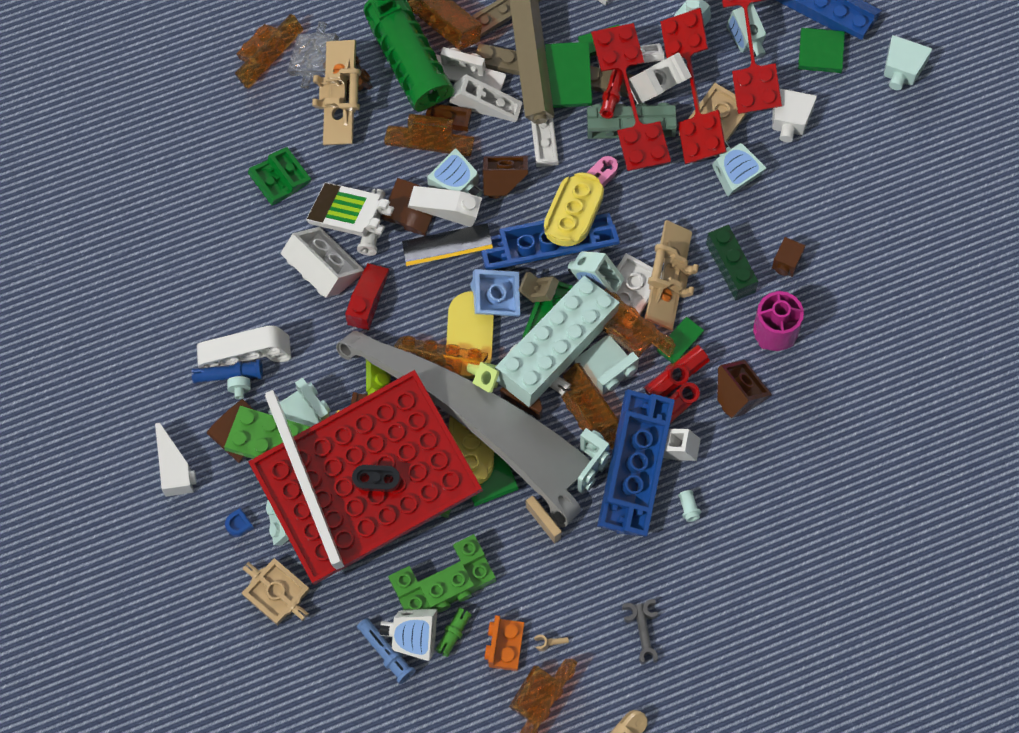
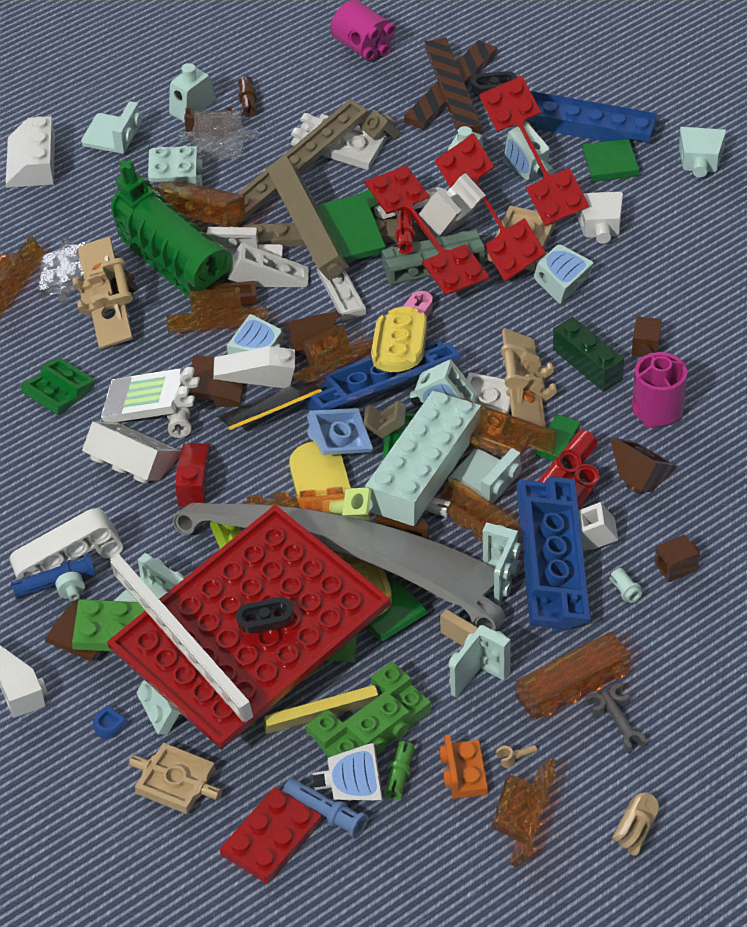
camera: 15 degrees left, 20 degrees down
(337, 663) = (271, 835): none -> red plate
(404, 560) = (307, 712): none -> light yellow tile
(512, 206) = (328, 350): none -> clear orange bracket
(545, 541) = (481, 650): none -> light aqua bracket
(618, 583) = (573, 676): none -> clear orange brick
(740, 491) = (677, 558): none -> reddish brown brick

